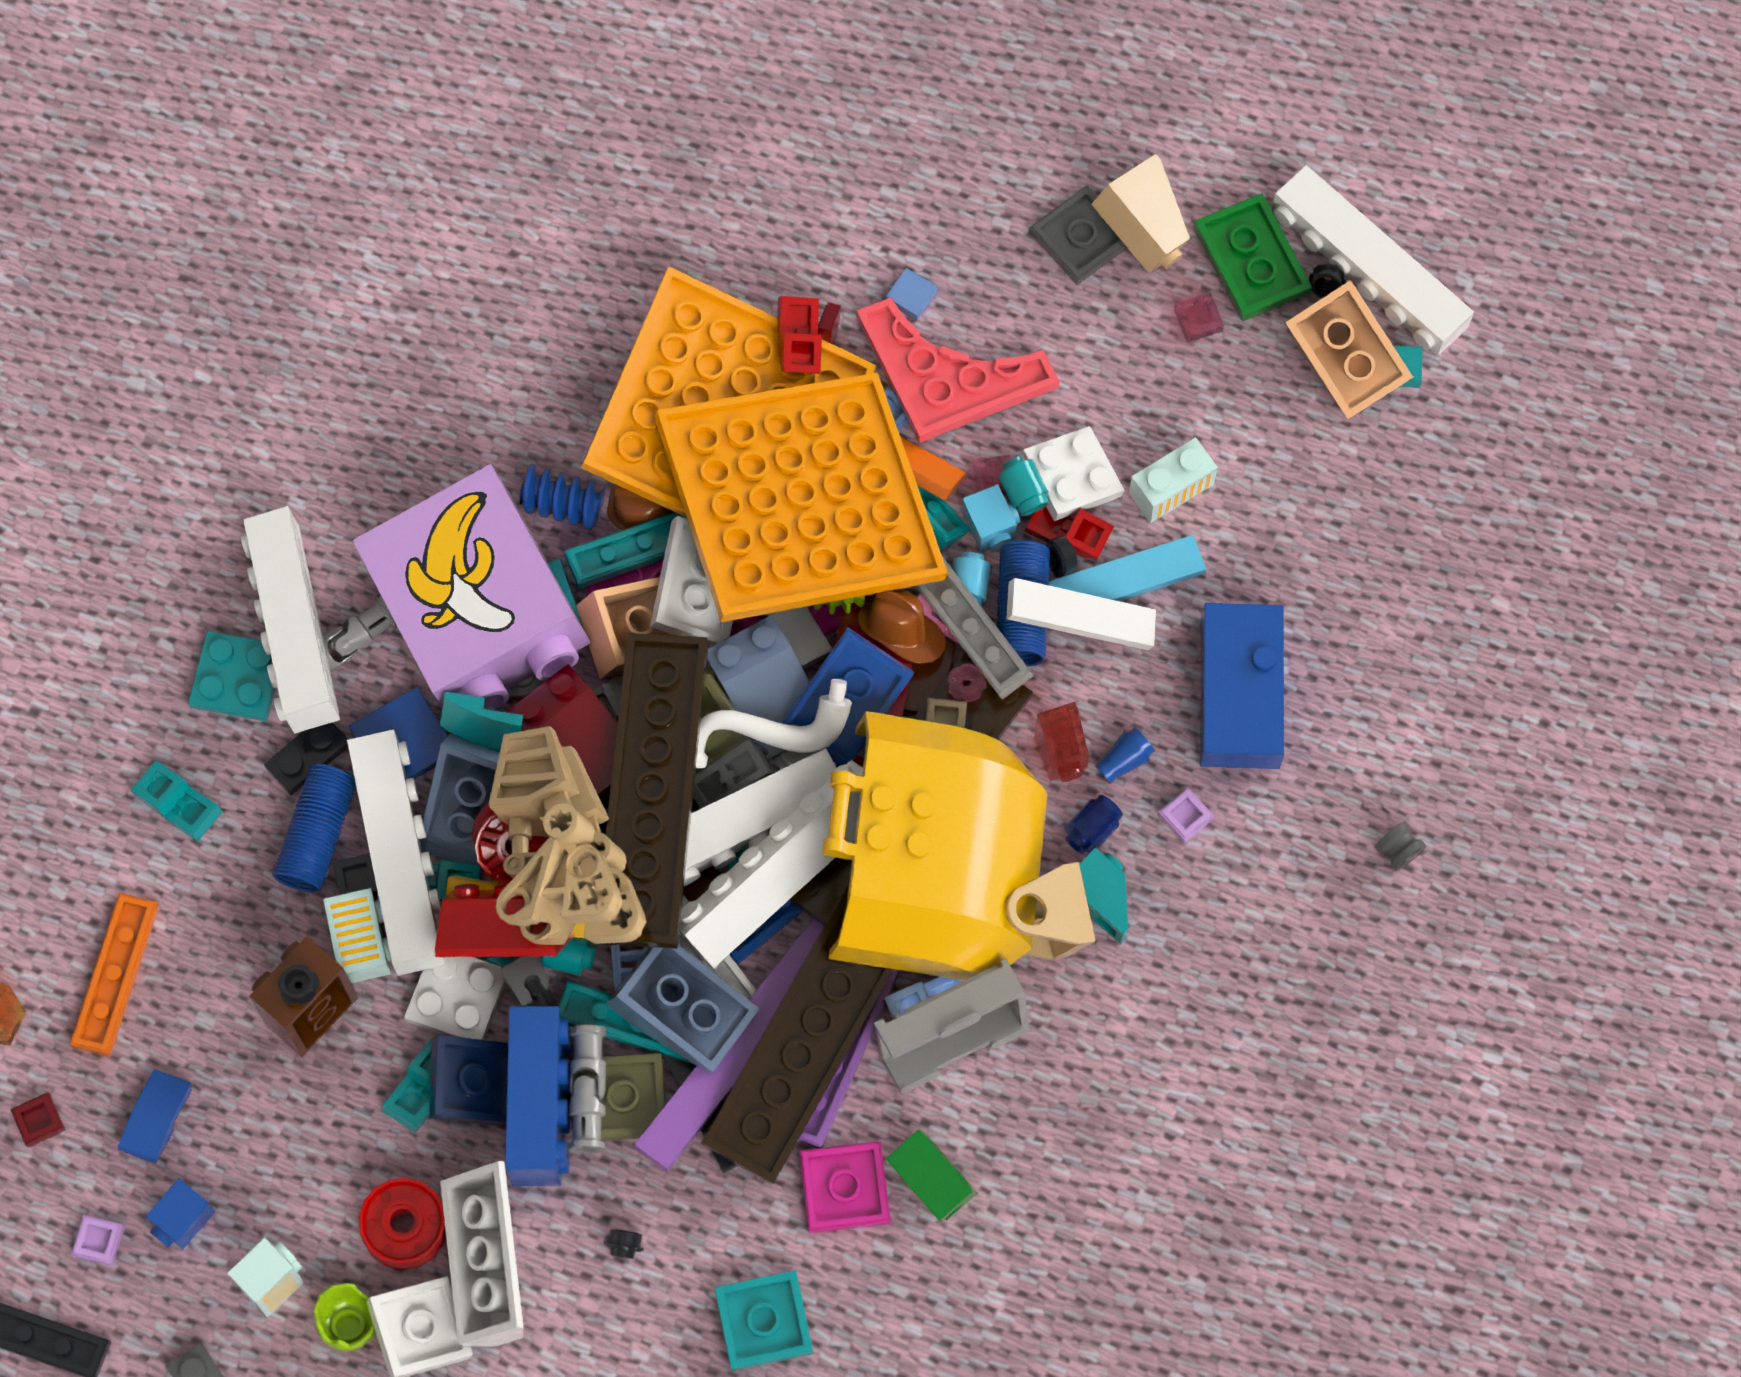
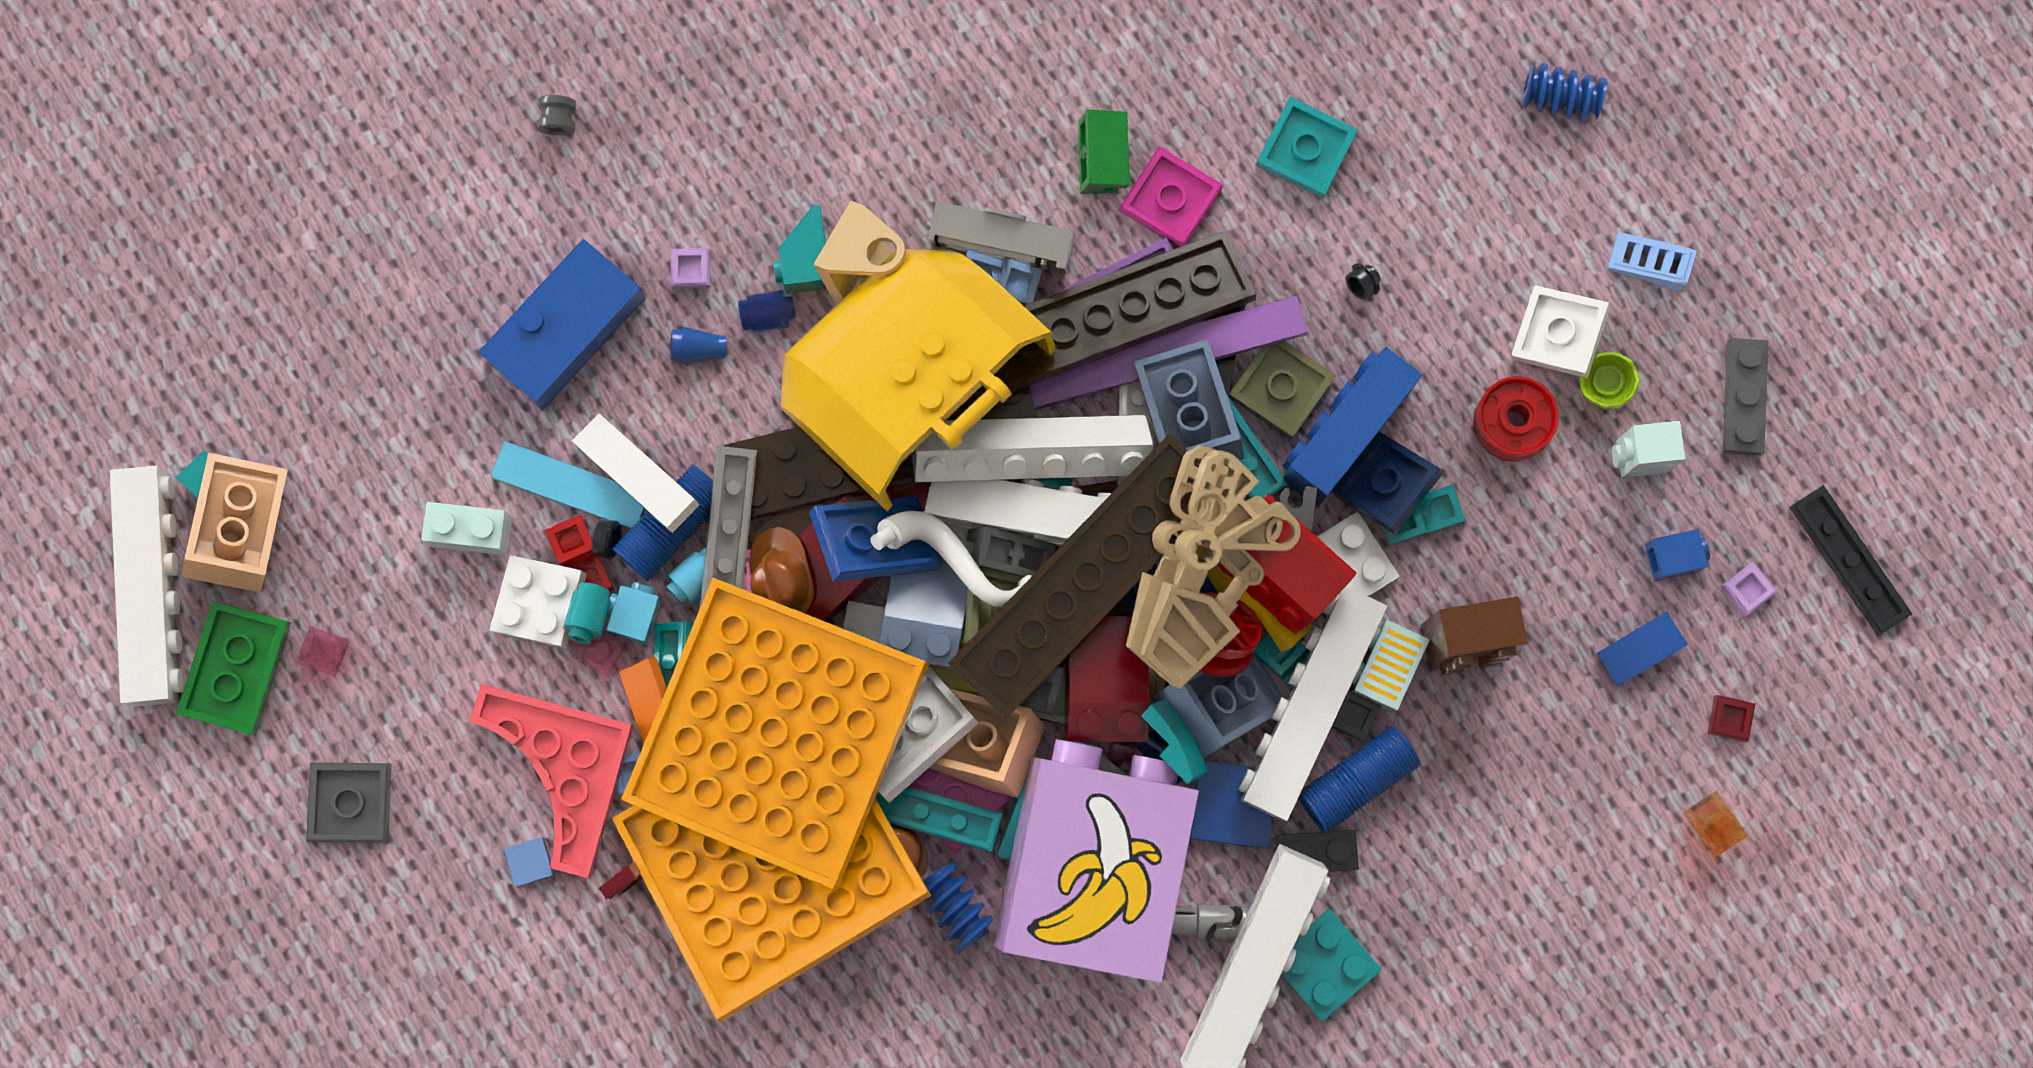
camera: 145 degrees left, 10 degrees up
(114, 974) = (1594, 789): orange tile -> none
(176, 801) = (1447, 895): teal slope -> none
(296, 974) = (1493, 609): black plate -> none
(482, 1257) = (1479, 339): white slope -> none
(585, 1091) = (1309, 399): light grey piece -> none
(798, 335) = (658, 882): red slope -> none
(946, 712) = (812, 468): dark tan tile -> none
(970, 673) = (771, 473): clear pink plate -> none
(1062, 742) = (738, 385): clear red slope -> none
(1145, 214) = (285, 770): slope -> none
(1322, 287) = (194, 598): black plate -> none

